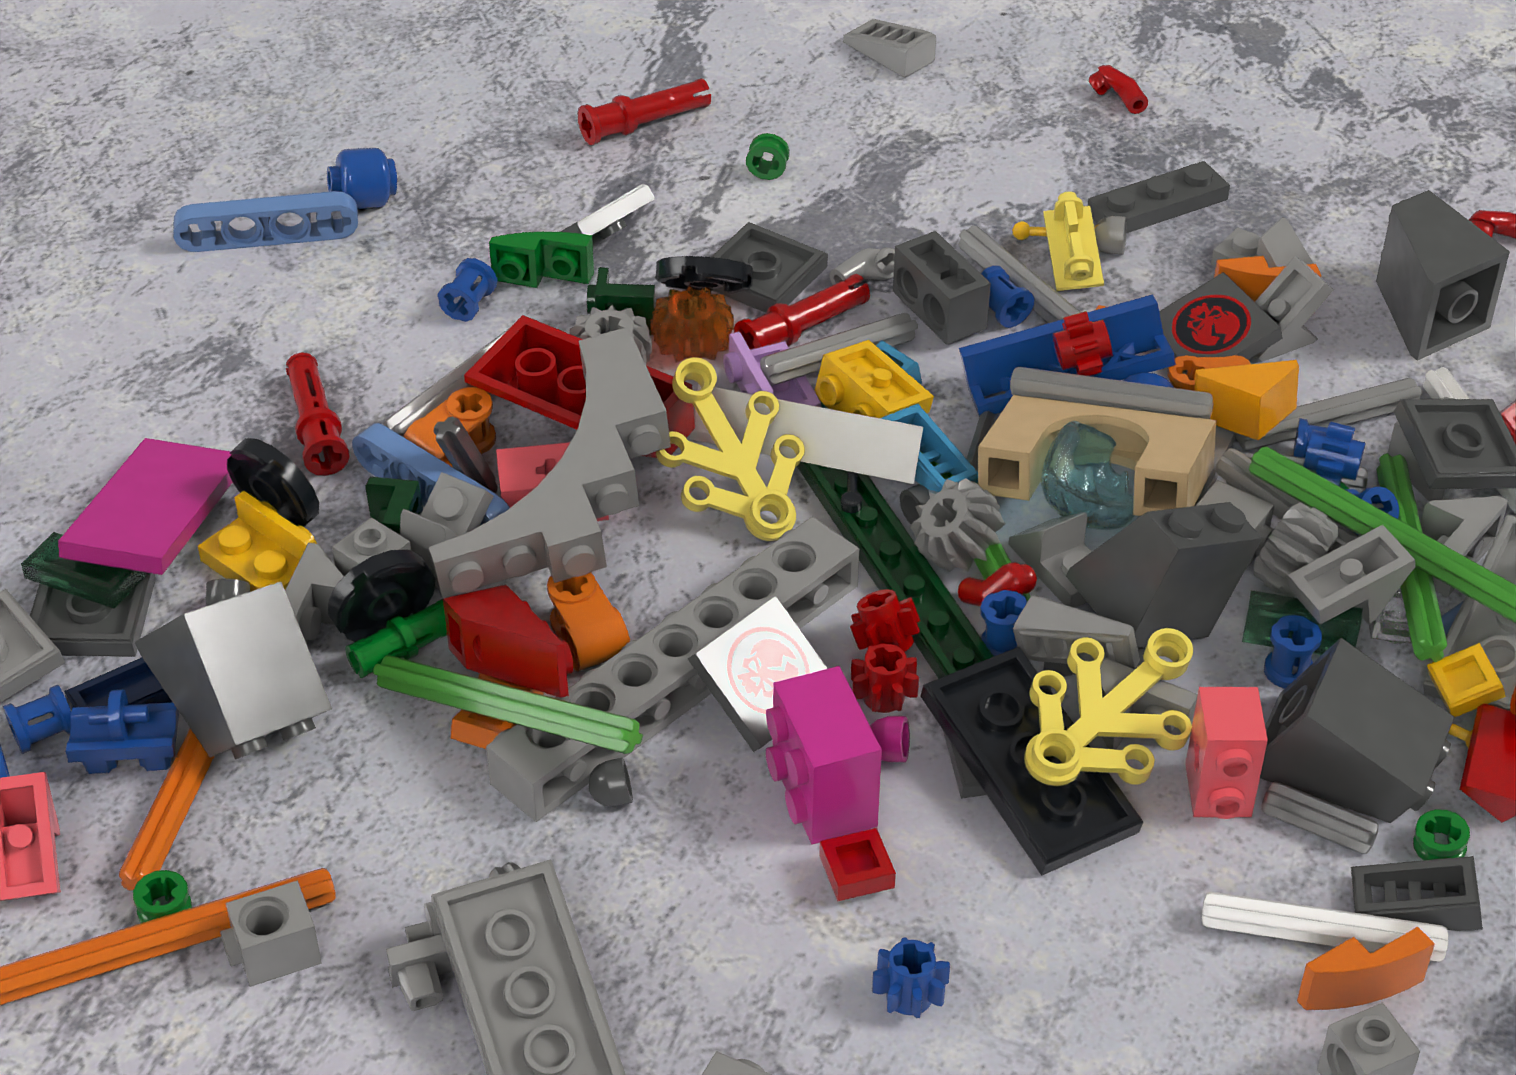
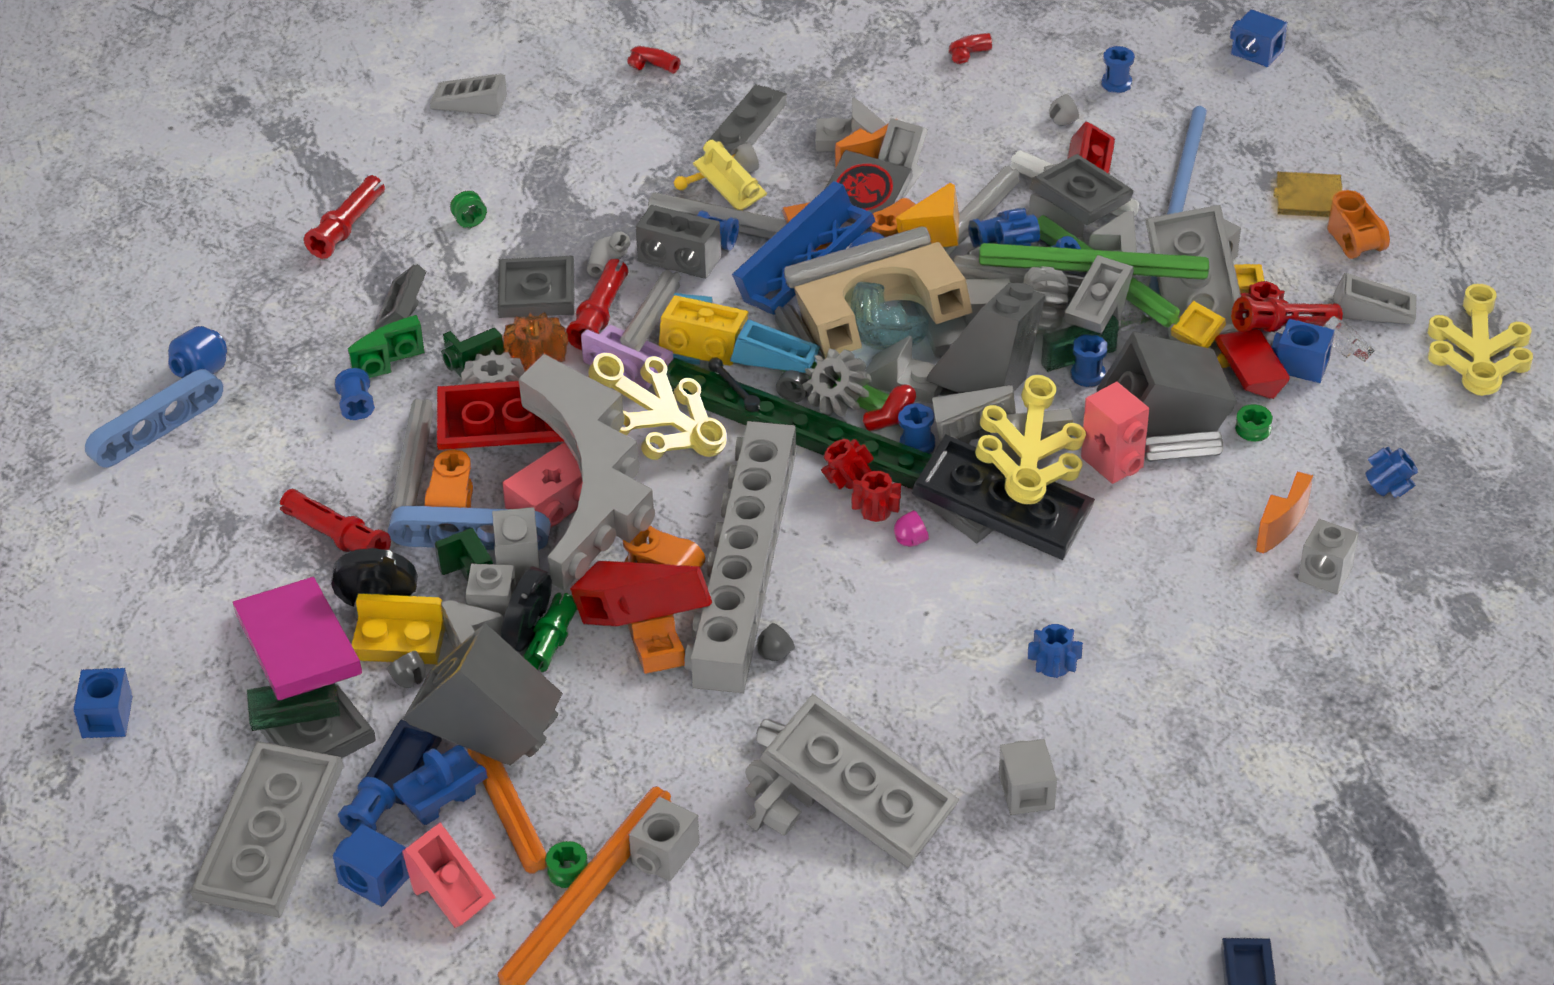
camera: 35 degrees left, 0 degrees up
(463, 452) = (484, 491): flat silver axle -> none
(509, 704) = (679, 627): bright green axle -> none
(704, 272) = (522, 303): black tile -> none
(748, 660) = (807, 529): tile -> none
(824, 755) = (897, 553): dark pink brick -> none
(828, 435) = (717, 365): white sticker -> none
(857, 864) = (963, 608): red plate -> none
(1082, 344) = (817, 233): red gear -> none
(1311, 923) = (1229, 505): white axle -> none
(1435, 875) = (1284, 436): dark grey slope -> none
(1438, 274) = (969, 92): dark grey slope -> none

